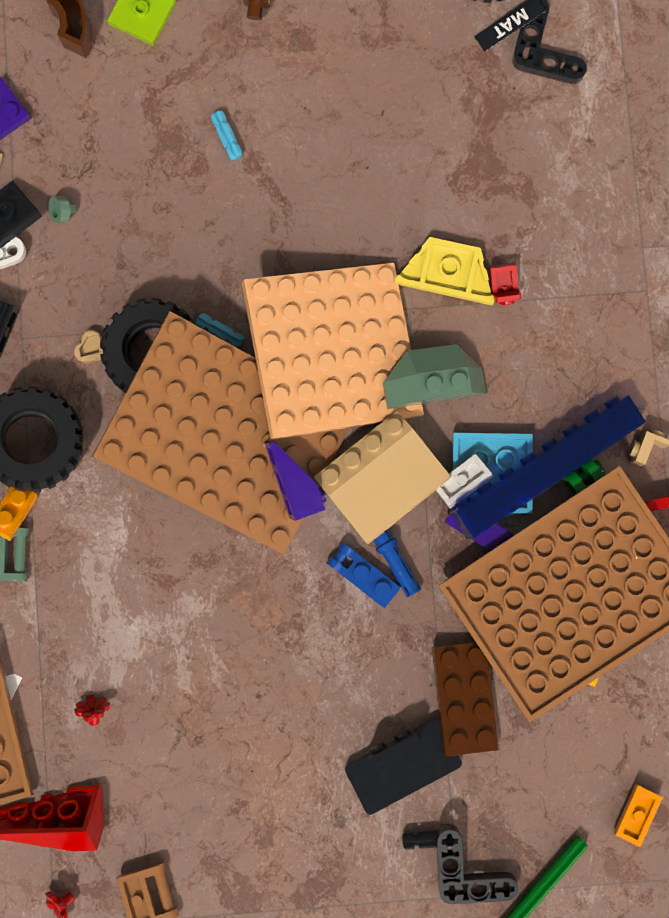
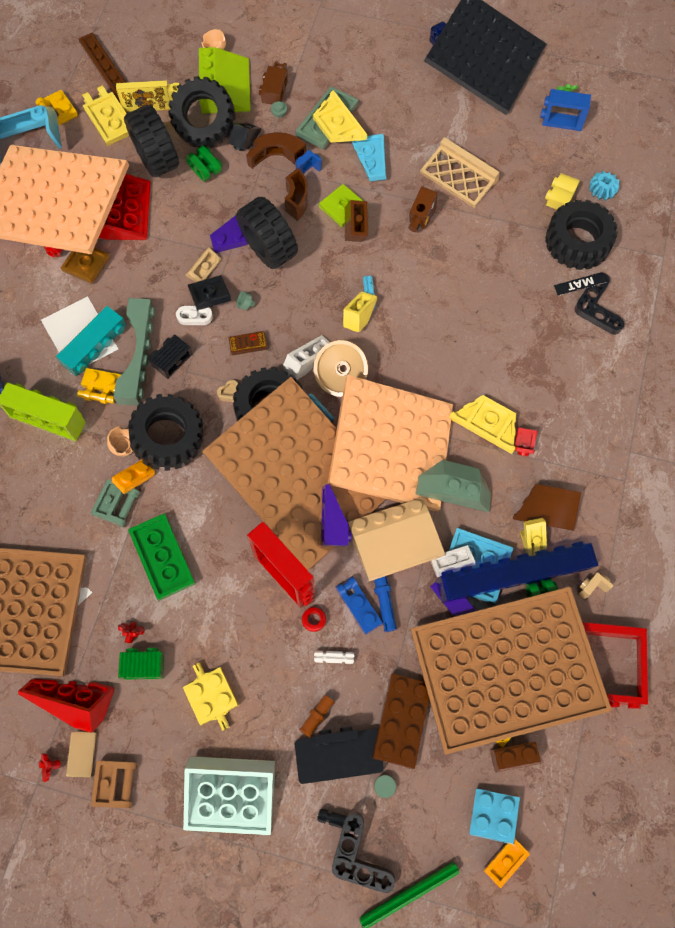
camera: 20 degrees right, 15 degrees down
(54, 101) = (267, 232): none -> black tyre
(88, 269) = (247, 343): none -> reddish brown tile
(91, 602) = (161, 557): none -> green plate
(94, 877) = (81, 754): none -> tan slope
(122, 747) = (141, 665): none -> green brick
(171, 34) = (356, 221): none -> reddish brown brick
(177, 262) = (302, 359): none -> white slope
(214, 273) = (330, 361): none -> tan dish
(223, 171) = (358, 311): none -> light yellow slope
(223, 752) = (210, 696): none -> light yellow plate
(252, 569) = (282, 565): none -> red window
(289, 858) = (228, 795): none -> light aqua slope
(325, 612) = (313, 610): none -> red piece
(355, 650) = (334, 657): none -> white axle
(360, 729) = (316, 716): none -> dark orange pin
(469, 781) = (384, 786): none -> sand green tile
(555, 411) = (534, 536): none -> light yellow slope
(563, 363) = (552, 504): none -> reddish brown slope
(609, 769) = (494, 816): none -> medium azure plate
(613, 693) = (515, 757): none -> reddish brown brick

